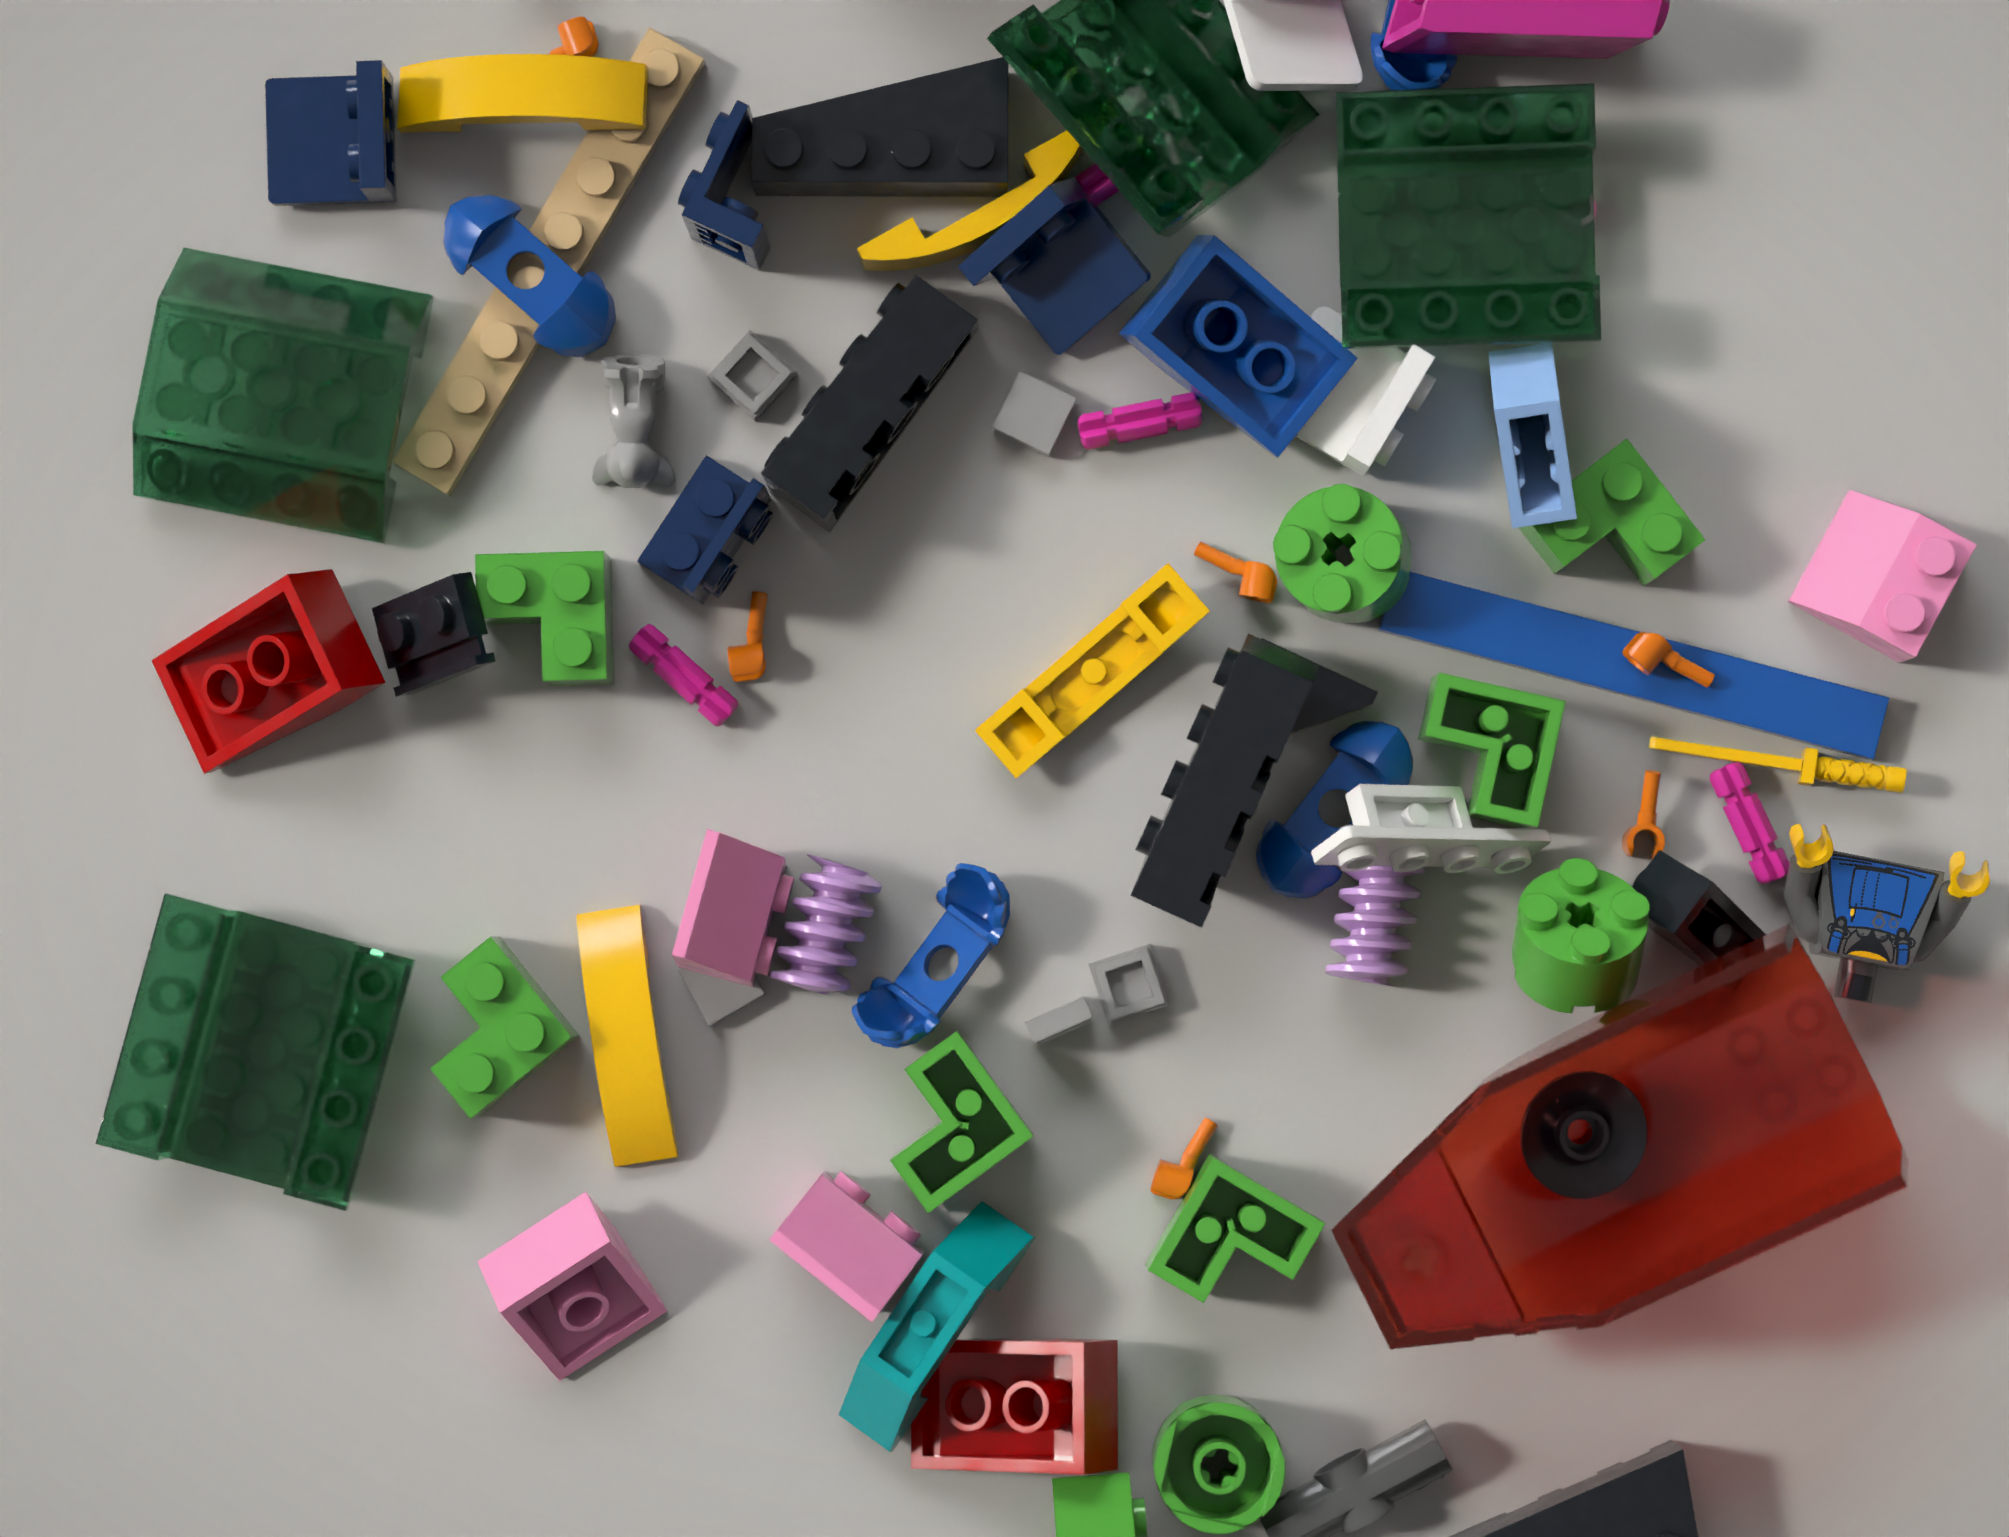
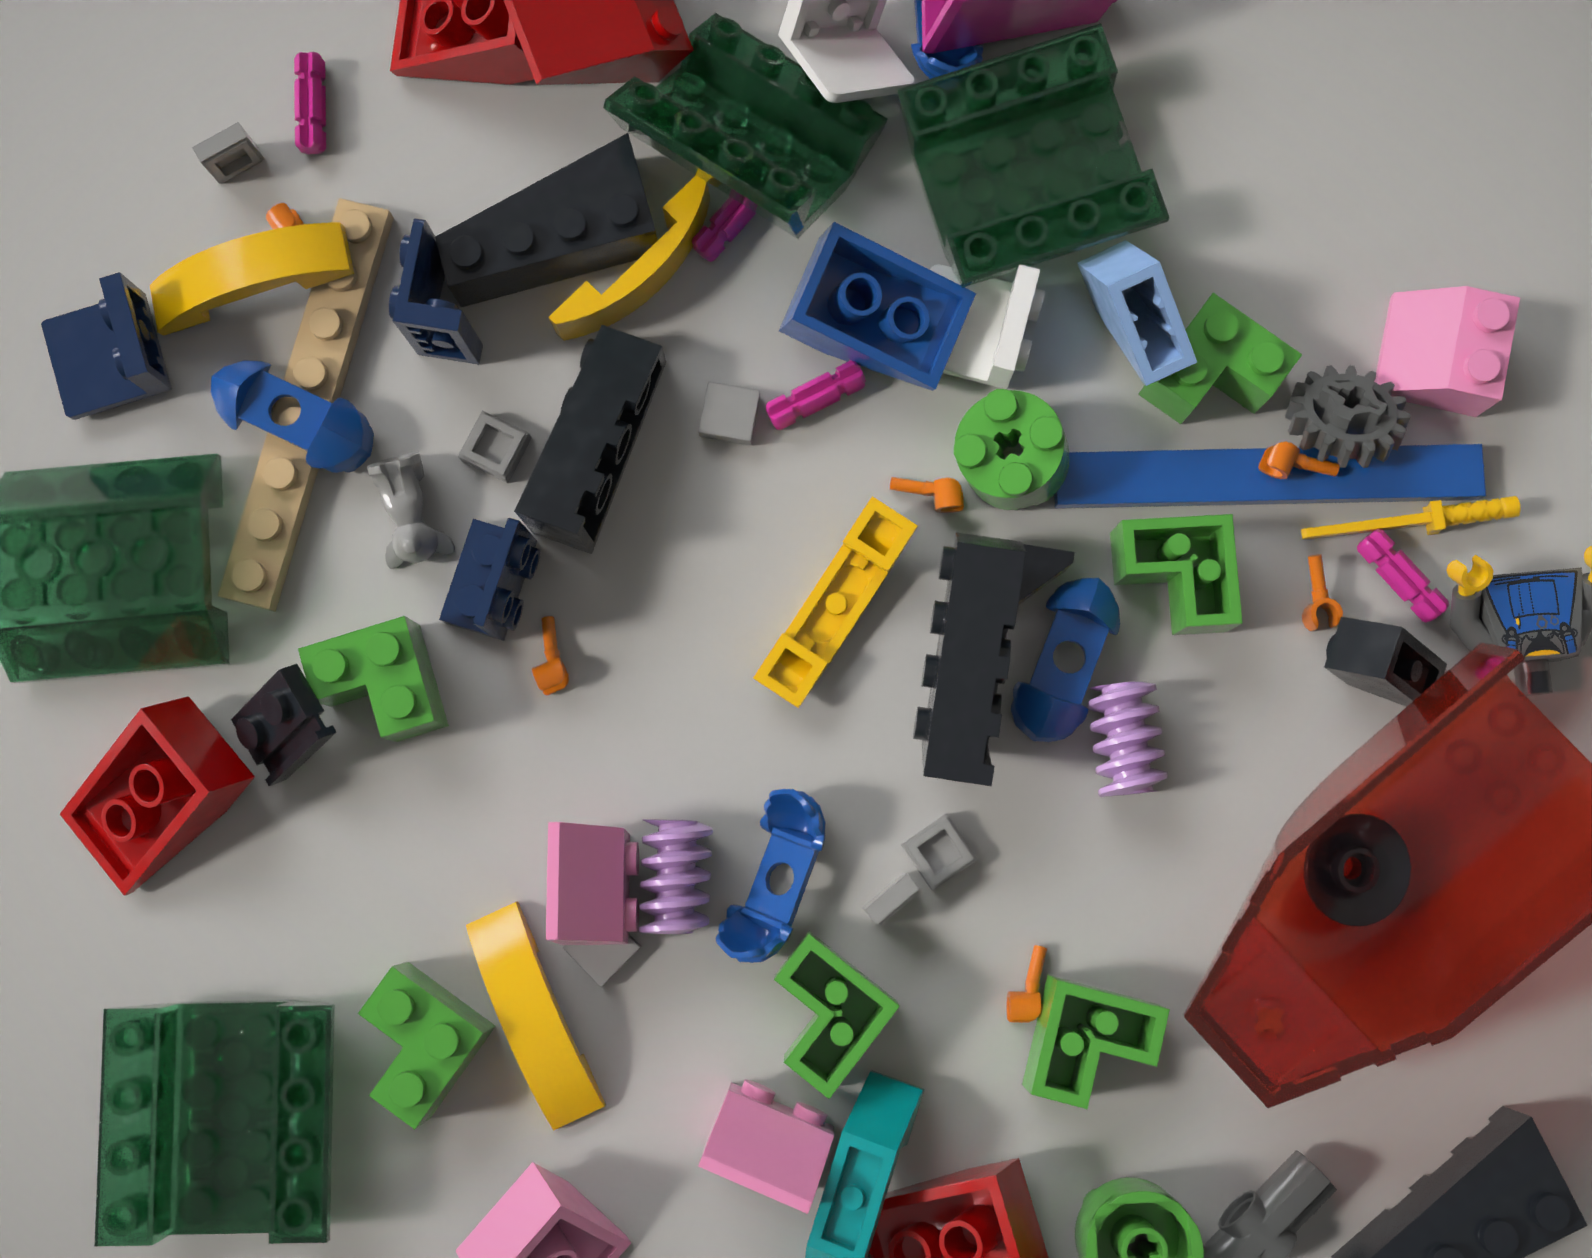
camera: 15 degrees left, 5 degrees down
(683, 675) = (502, 701): dark pink axle -> none
(1060, 264) = (714, 285): dark blue bracket -> none
(1423, 828) = (1148, 652): white bracket -> none
(1579, 938) = (1304, 706): bright green brick -> none
(1745, 623) = (1347, 416): none -> dark grey gear

